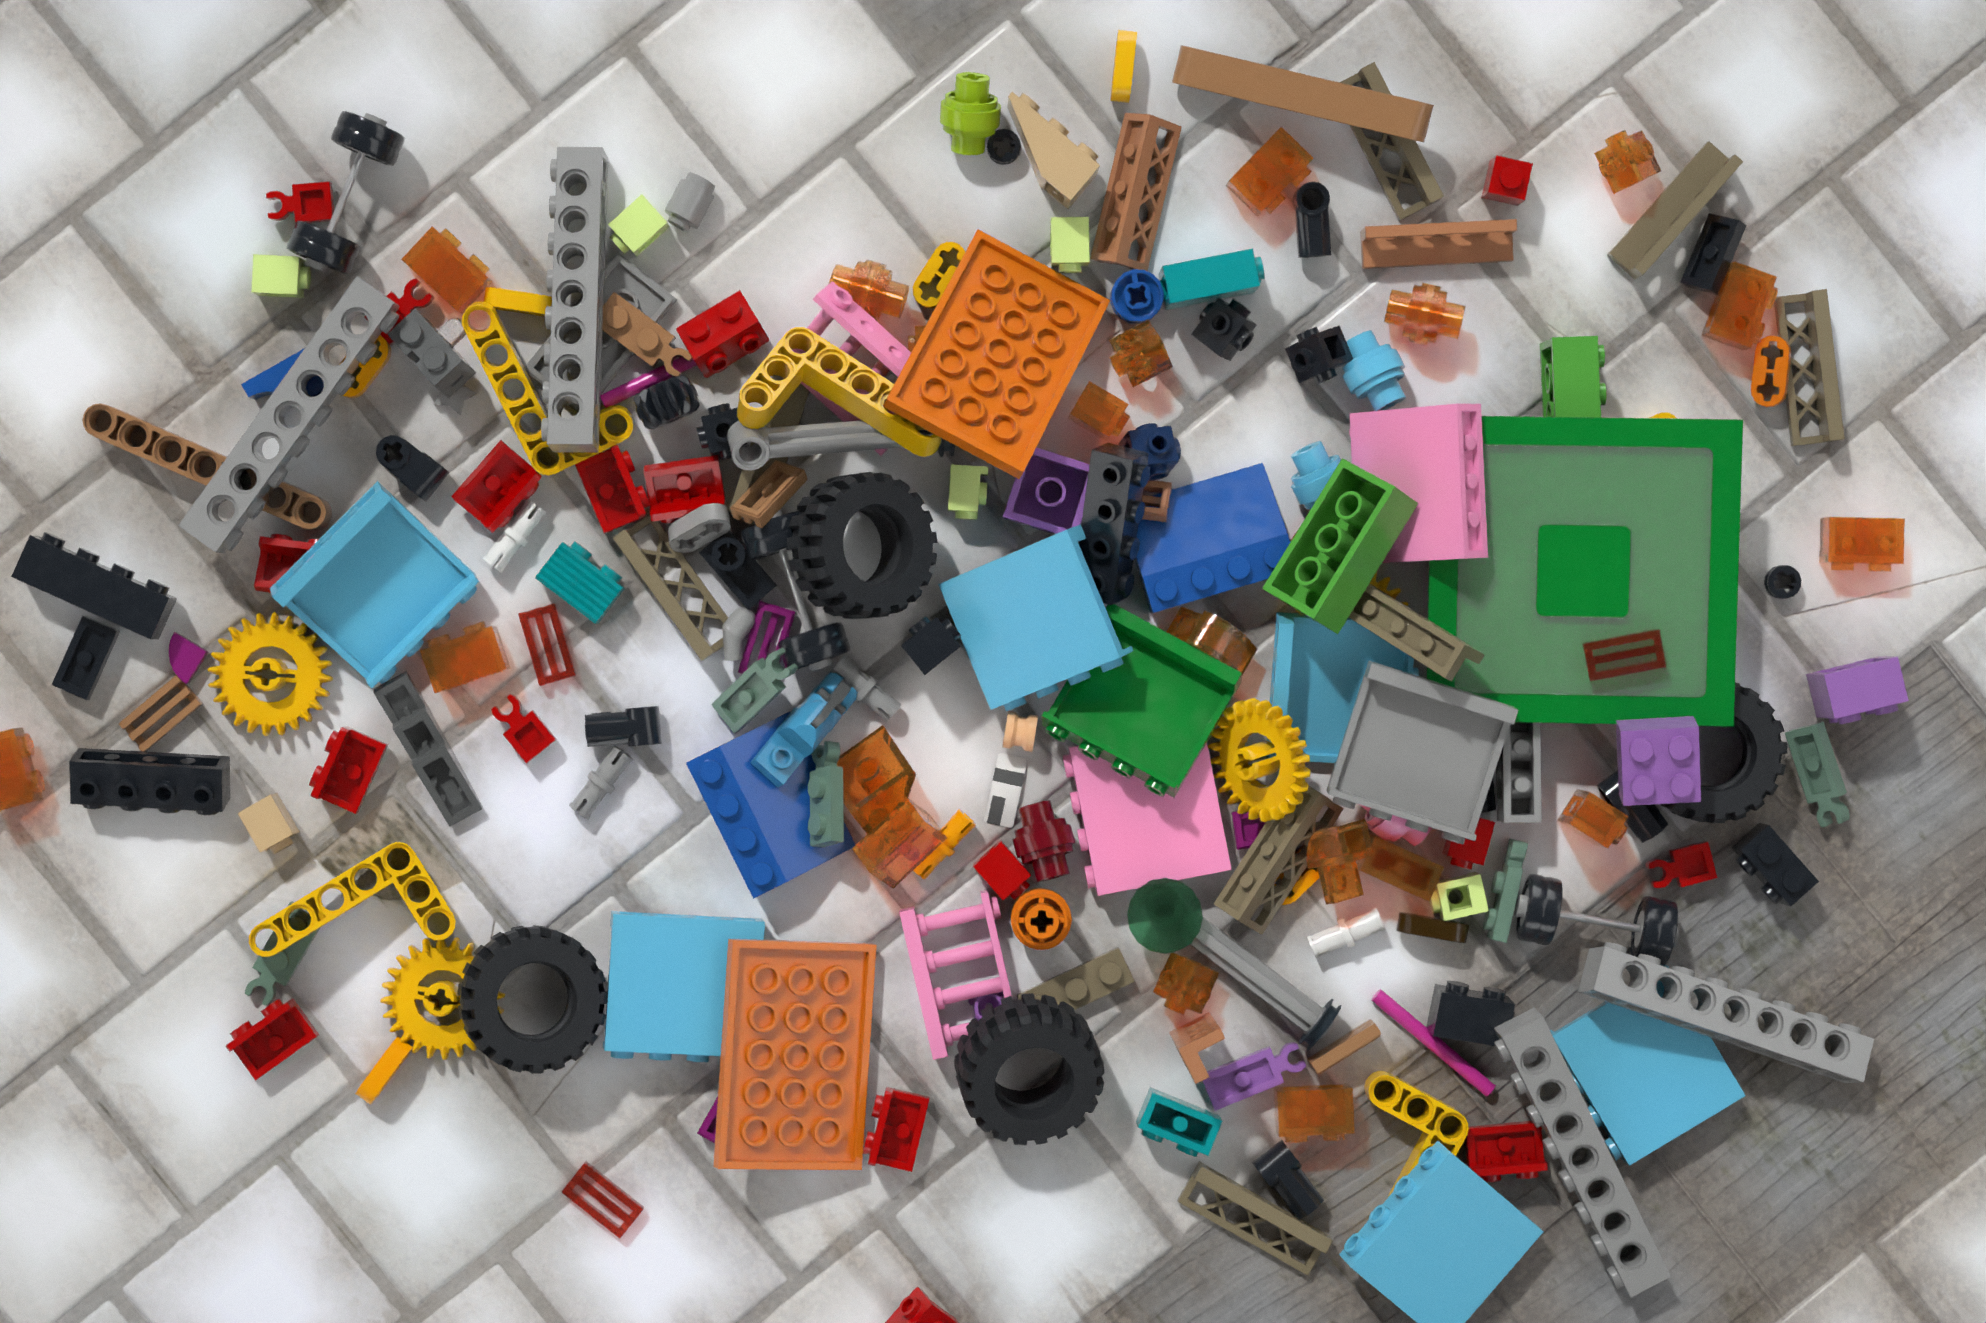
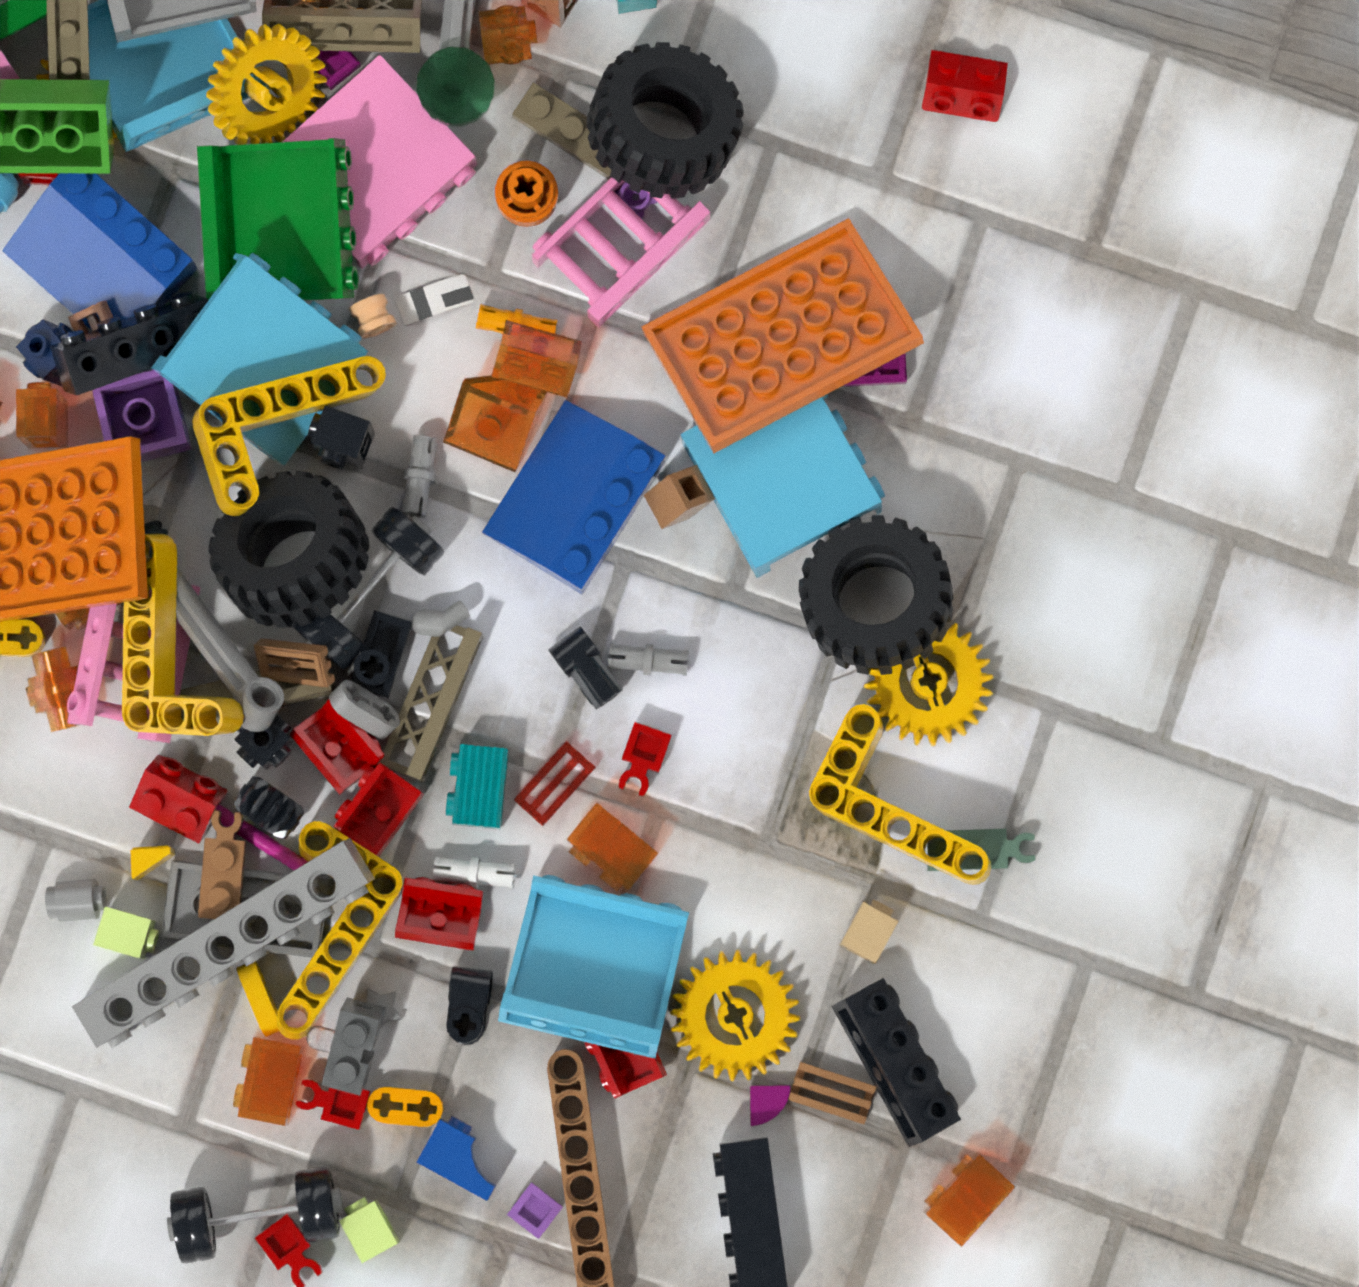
camera: 135 degrees left, 5 degrees down
(85, 658) = (823, 1191): black plate -> none
(203, 518) = (341, 1136): light grey brick -> none
(213, 418) = (535, 1210): none -> medium lavender plate
(272, 1038) = (1058, 809): red bracket -> none
(348, 768) = (776, 890): red bracket -> none
(384, 1070) = (1025, 692): light orange beam -> none
(428, 749) = (713, 832): dark grey slope -> none
(611, 1187) = (1015, 463): clear red tile -> none
(687, 281) = (148, 858): none -> yellow slope
(714, 889) = (679, 496): none -> medium nougat brick
(753, 691) = (481, 571): sand green plate -> none
(776, 611) = (443, 603): magenta tile -> none
(804, 729) = (487, 505): dark azure plate -> none
(826, 797) = (535, 448): sand green plate -> none
(897, 1129) = (793, 209): red bracket -> none
(966, 490) = (185, 494): yellowish green brick -> none
(982, 601) = (271, 411): none -> yellow beam
(1003, 871) = (506, 255): red brick -> none
(1043, 841) = (456, 234): dark red piece -> none
(1213, 637) = (181, 196): clear orange brick -> none

